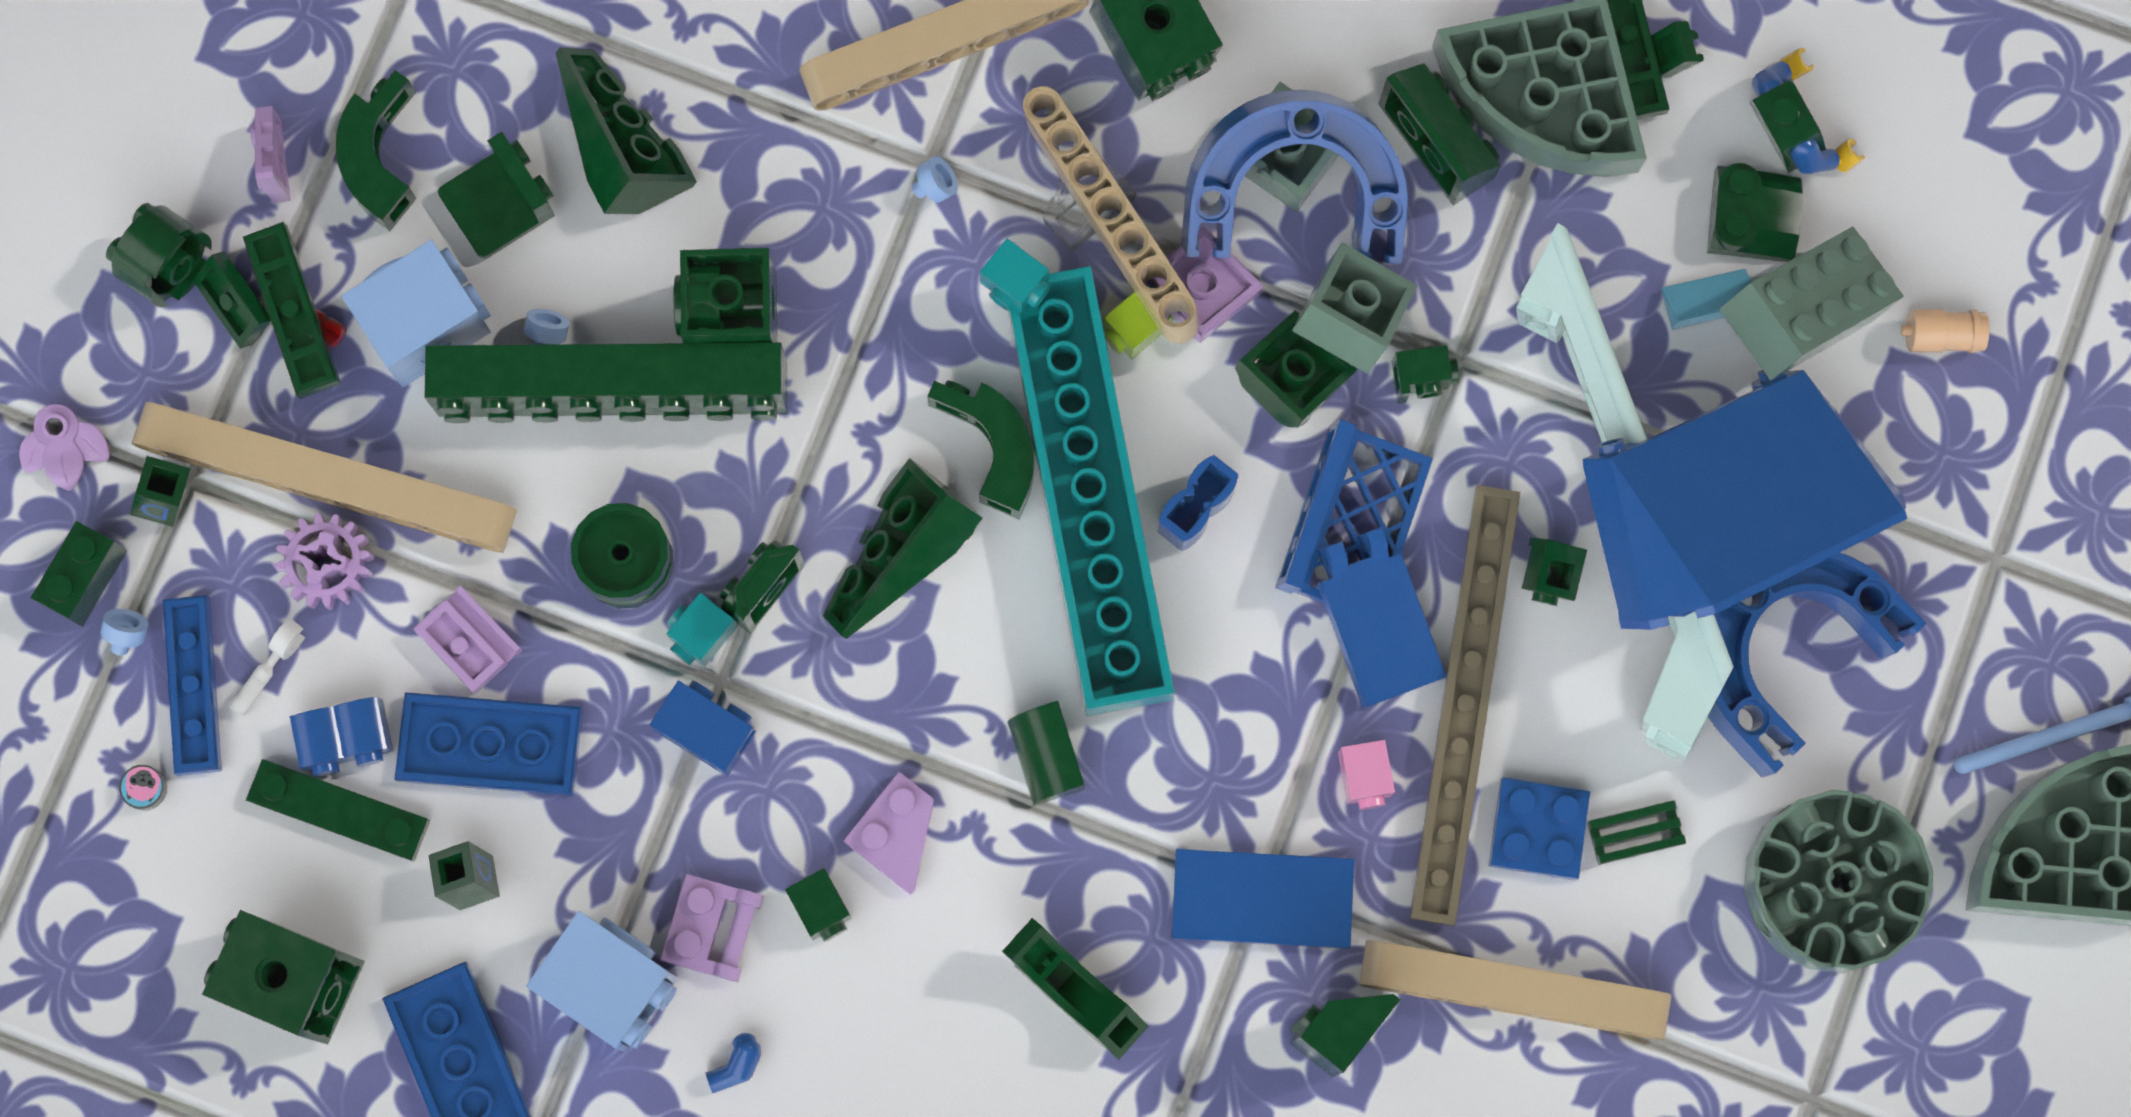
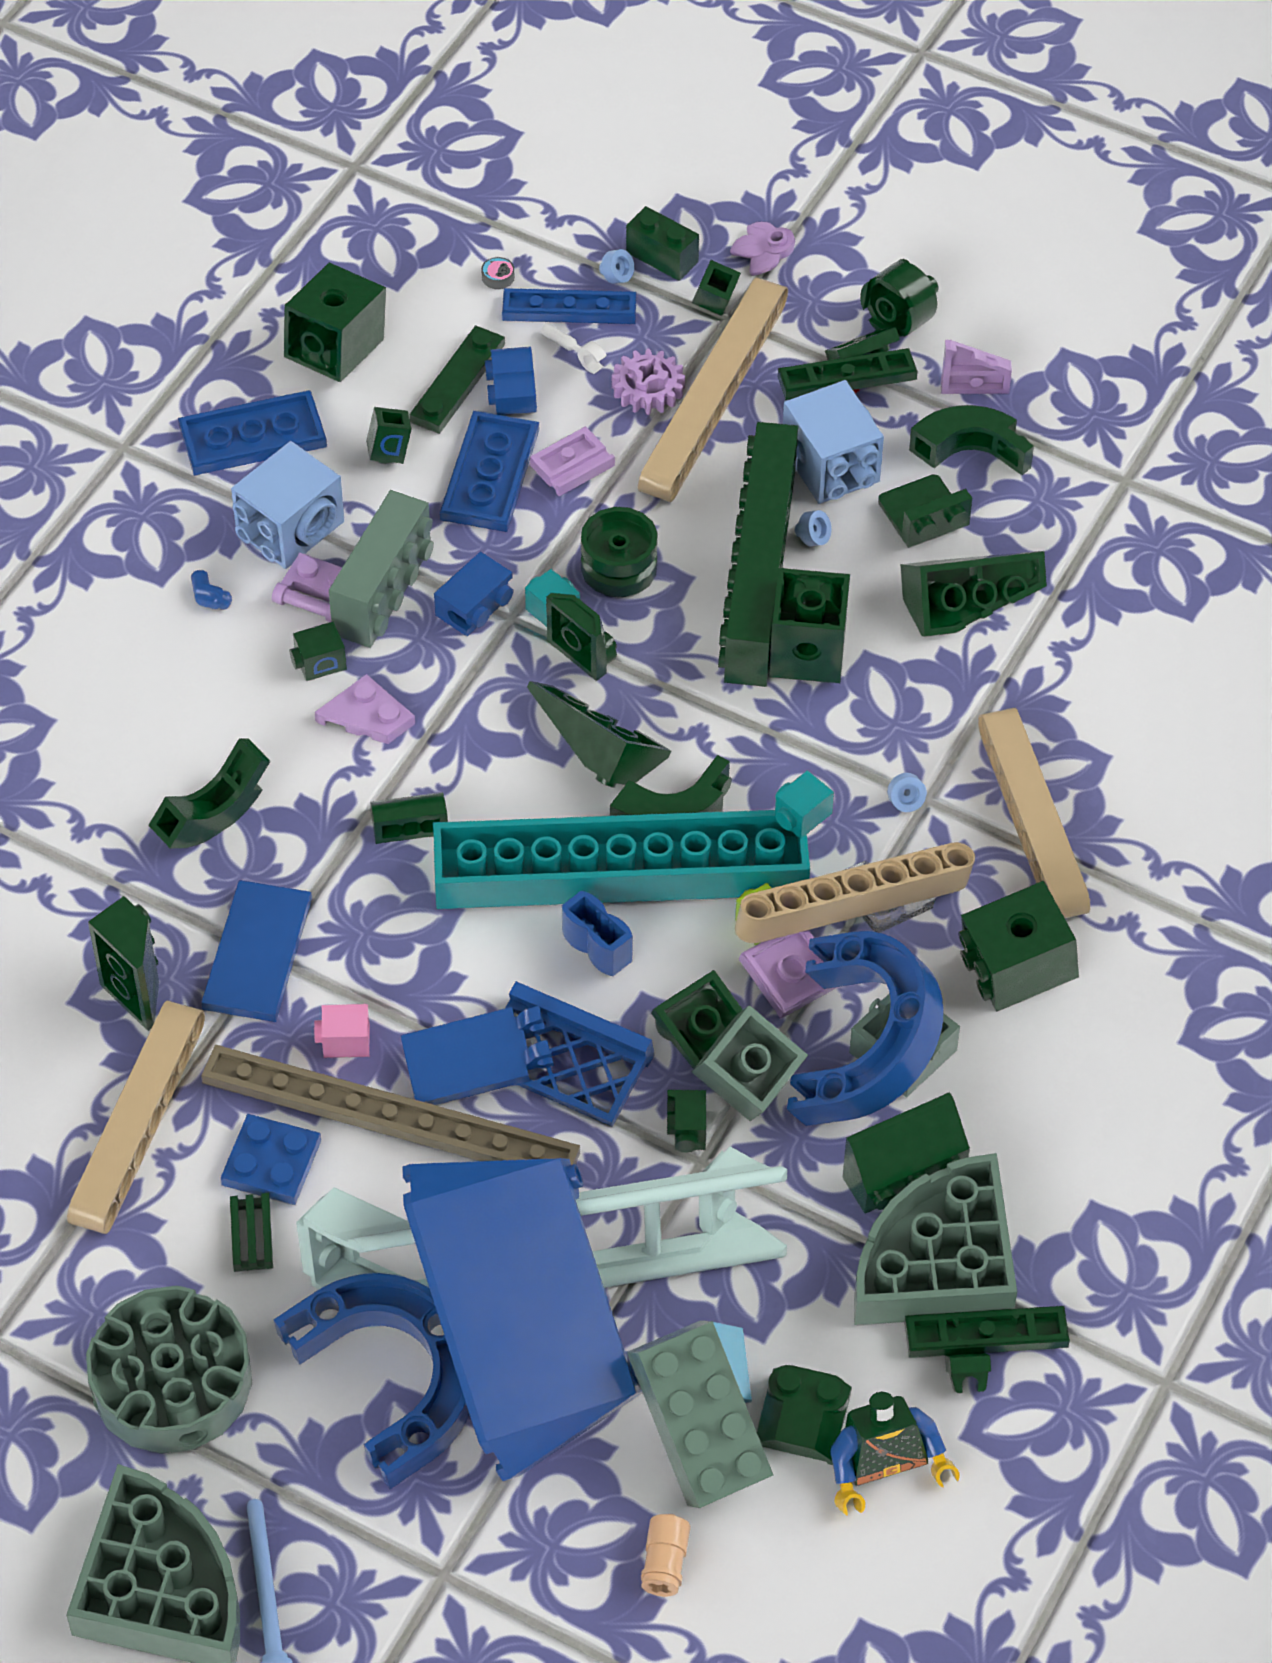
camera: 100 degrees right, 25 degrees down
(691, 843) = (381, 568): none -> sand green piece

